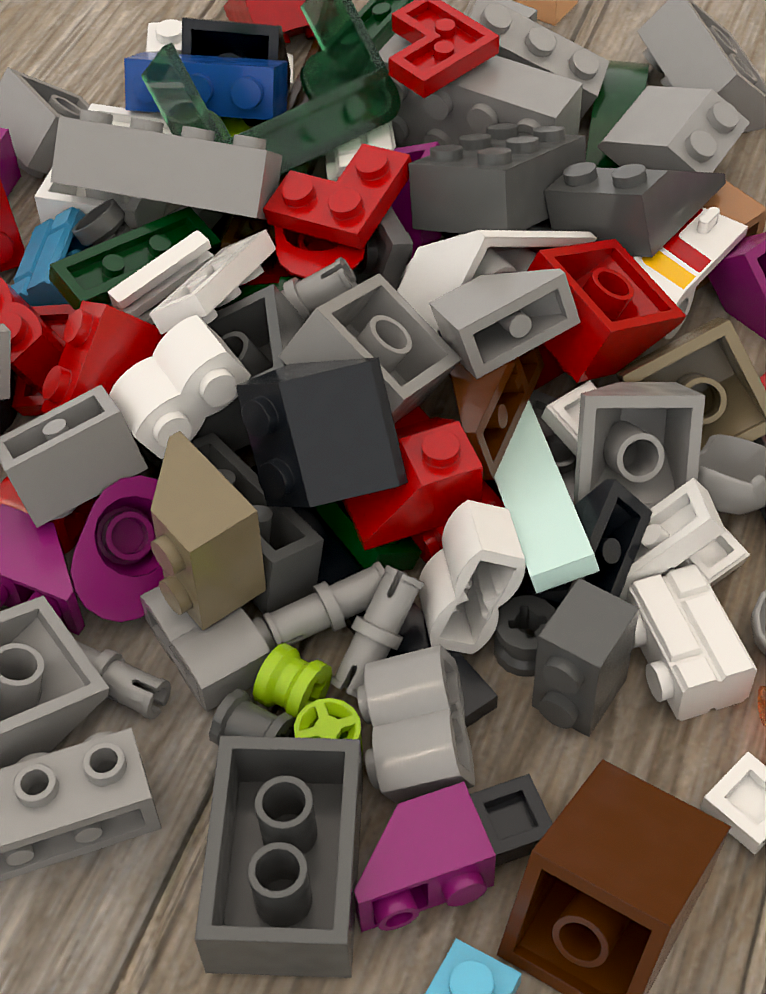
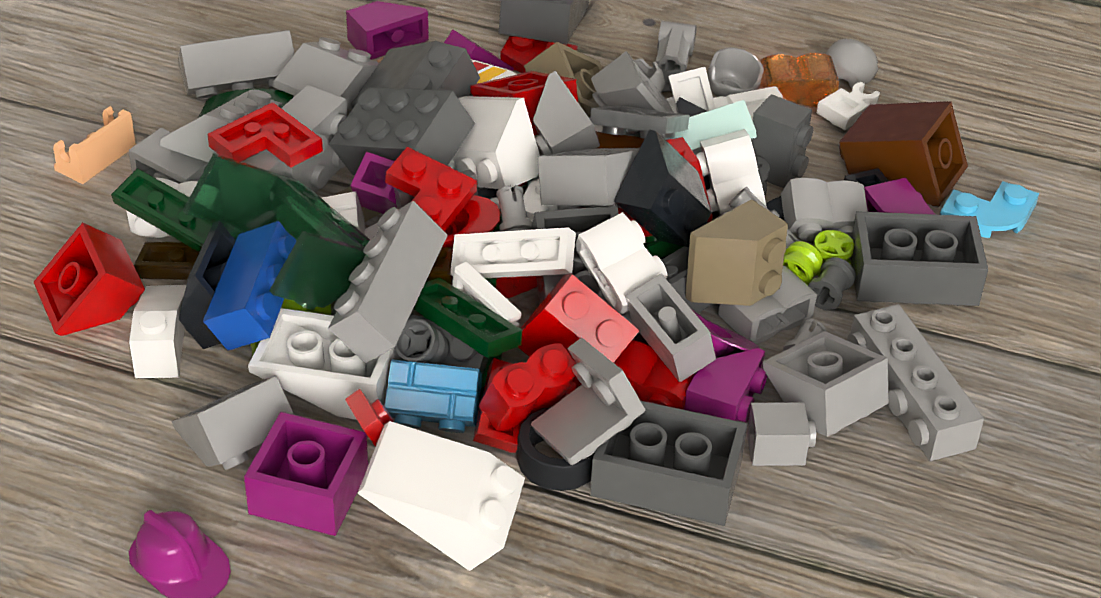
camera: 95 degrees left, 10 degrees down
(518, 413) = (623, 120): none -> flat silver plate

